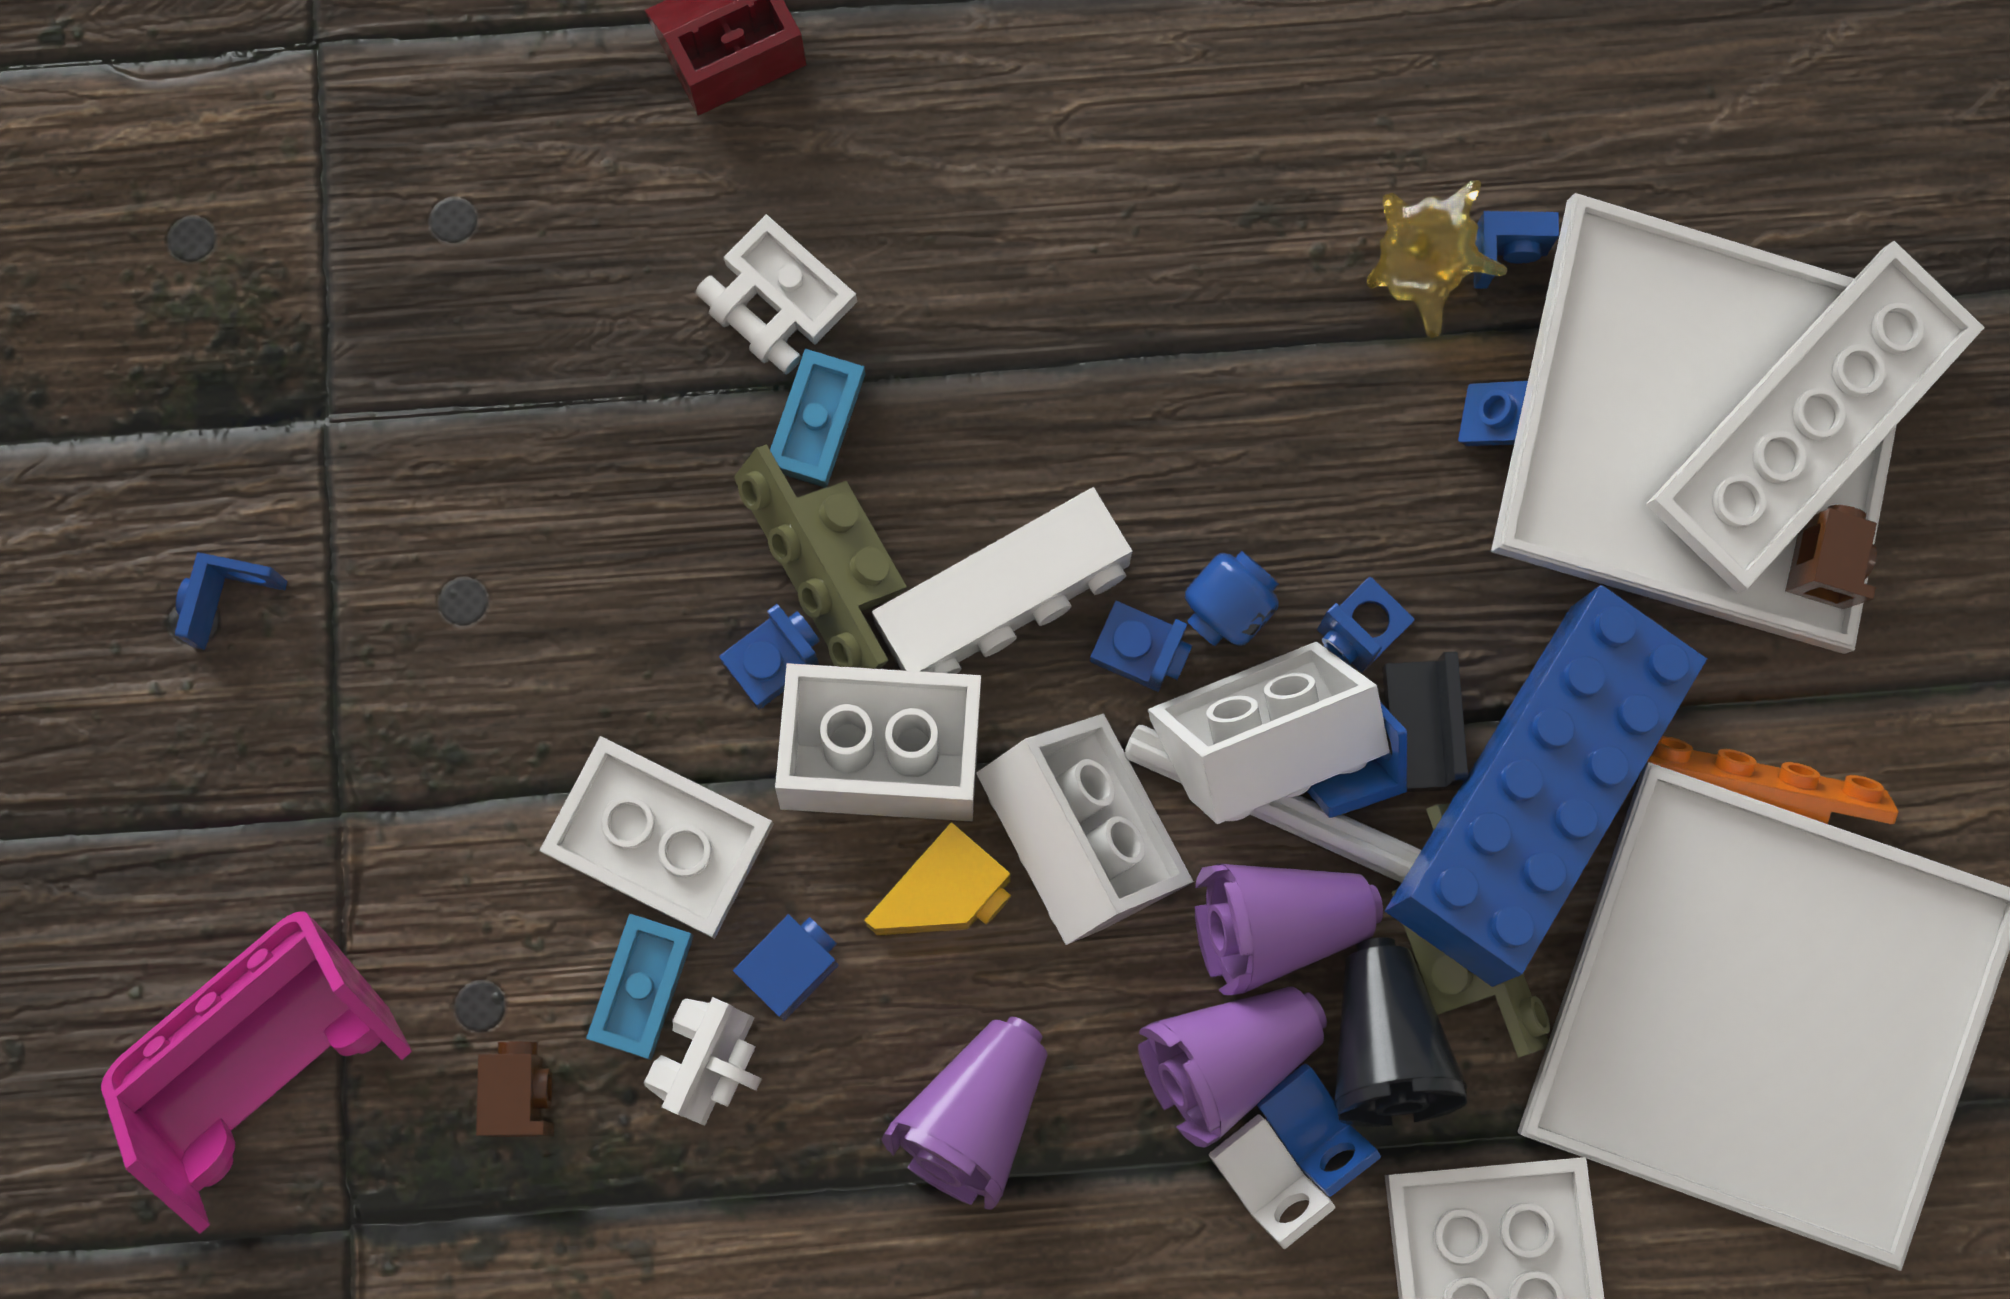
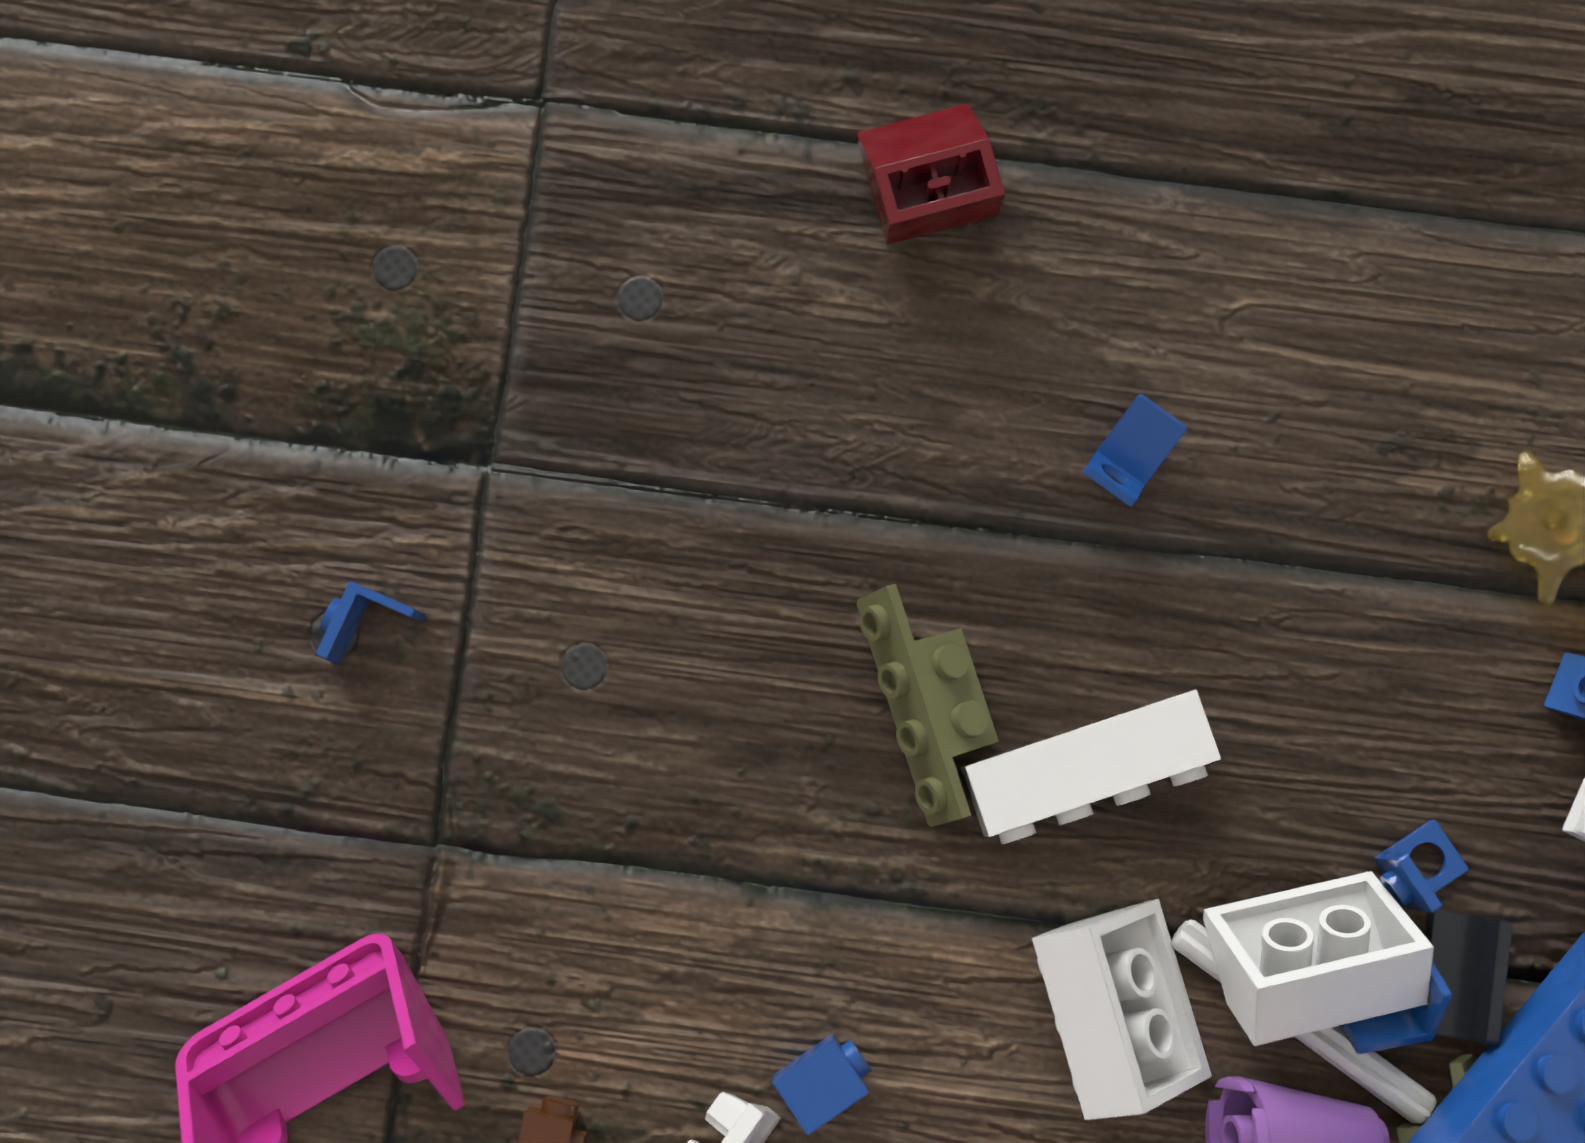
camera: 15 degrees right, 5 degrees up
(640, 986) = (682, 1071): dark azure plate -> none
(657, 837) = (723, 933): white plate -> none
(762, 655) = (861, 782): blue bracket -> none
(788, 280) = (944, 425): white plate -> none
(816, 417) = (945, 561): dark azure plate -> none
(878, 742) = (950, 891): white slope -> none
(944, 889) = (979, 1041): yellow slope -> none
(989, 265) = (1134, 449): none -> blue bracket
(1141, 647) = (1208, 845): blue bracket -> none
(1231, 599) = (1302, 819): blue head -> none

